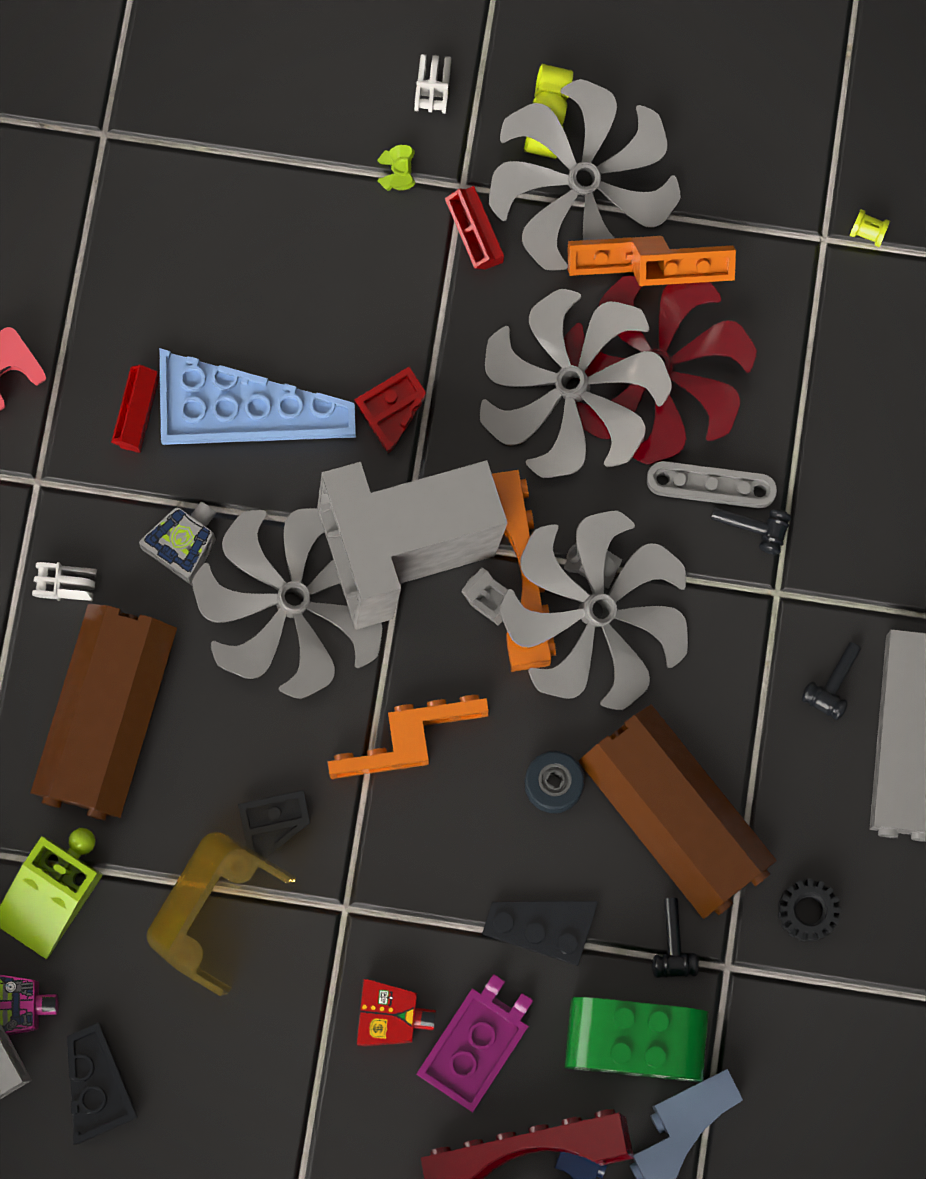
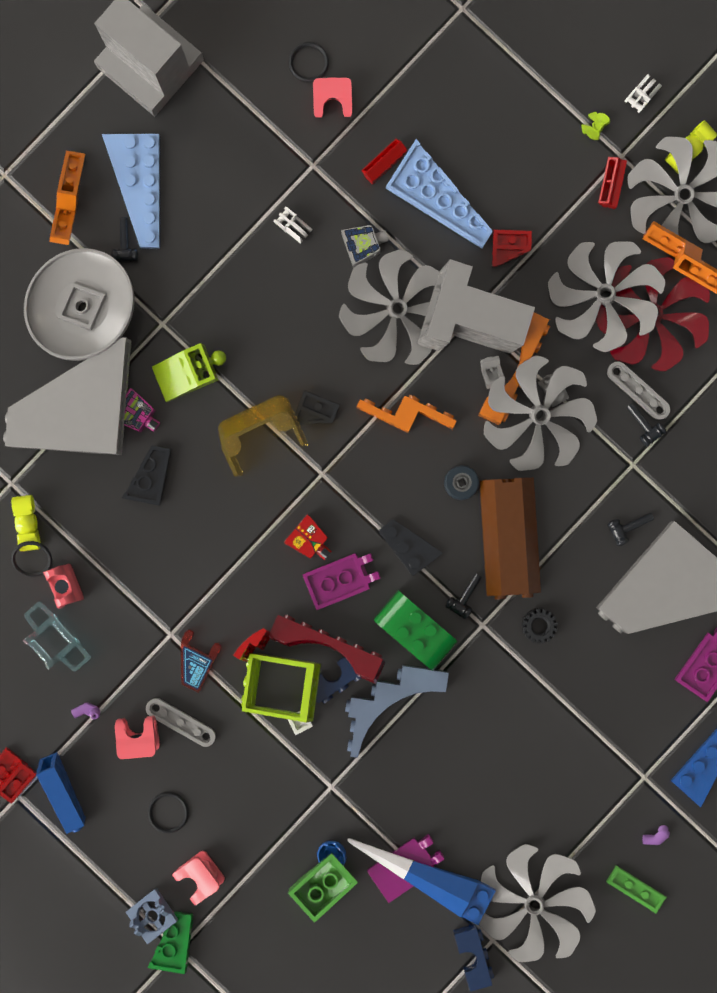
camera: 35 degrees right, 10 degrees up
(103, 711) = (270, 301): reddish brown panel -> none

